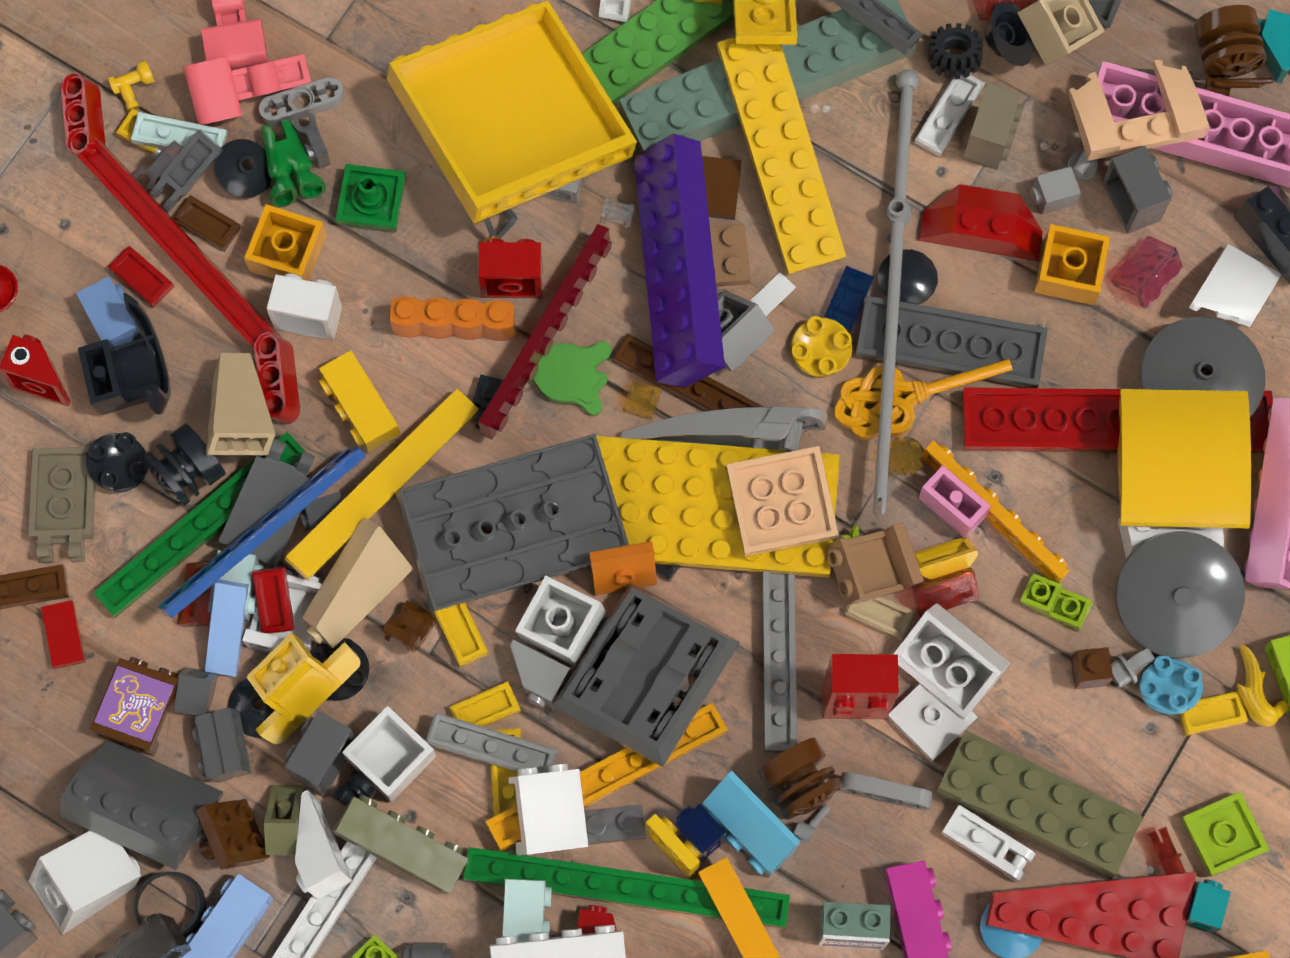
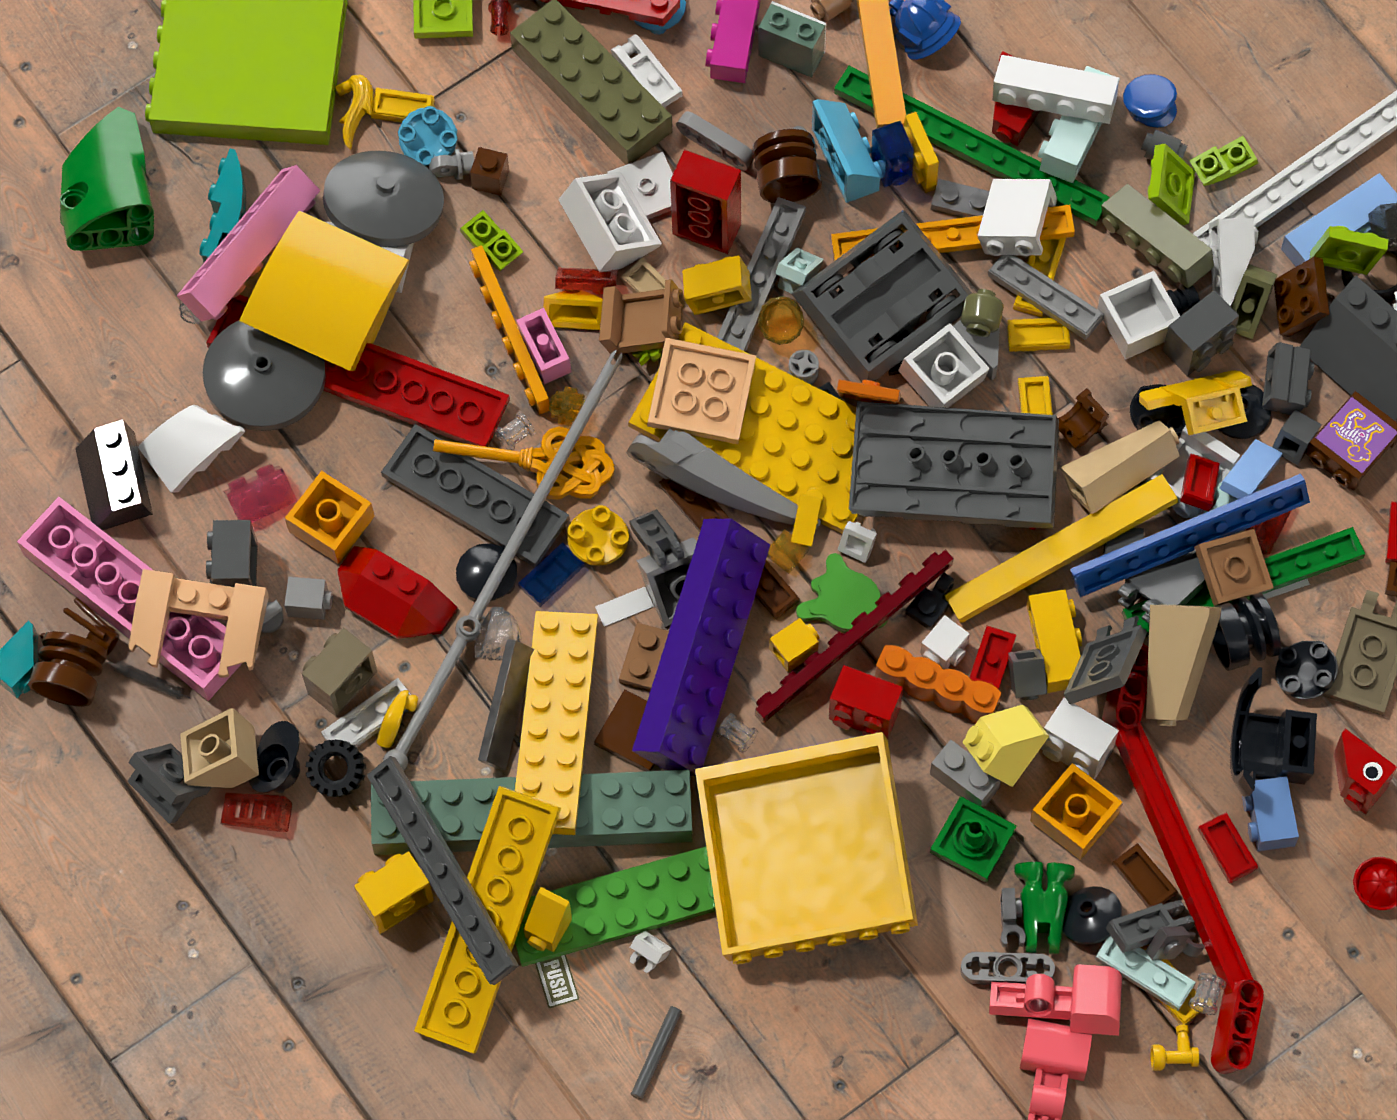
camera: 155 degrees left, 5 degrees down
(116, 130) = (1207, 994): none -> clear bush
(187, 887) = (1349, 249): none -> lime plate
(211, 517) = (1233, 567): none -> medium nougat plate
(299, 374) = (1106, 661): none -> dark grey tile
(368, 272) = (1005, 742): none -> light yellow slope
(374, 356) = (1027, 674): none -> dark grey brick
(397, 246) = (963, 775): none -> light grey brick
(404, 909) = (1171, 184): none -> lime plate
(412, 364) = (993, 656): none -> red plate
(460, 360) = (945, 643): none -> white brick
(542, 680) = (982, 313): none -> olive head
(578, 427) = (857, 541): none -> white tile
(597, 305) = (794, 644): none -> yellow brick
(634, 427) = (806, 520): none -> yellow window
(699, 575) = (802, 361): none -> light grey wheel
(739, 616) = (781, 320): none -> clear yellow hair
(744, 680) = (797, 269): none -> light aqua slope
(765, 353) = (656, 536): none -> dark grey hinge
(815, 627) = (716, 285): none -> yellow brick
(832, 156) = (506, 705): none -> flat silver tile
(868, 215) = (494, 632): none -> clear hat
(927, 116) = (393, 717): none -> yellow arm
(943, 416) = (515, 431): none -> clear bush

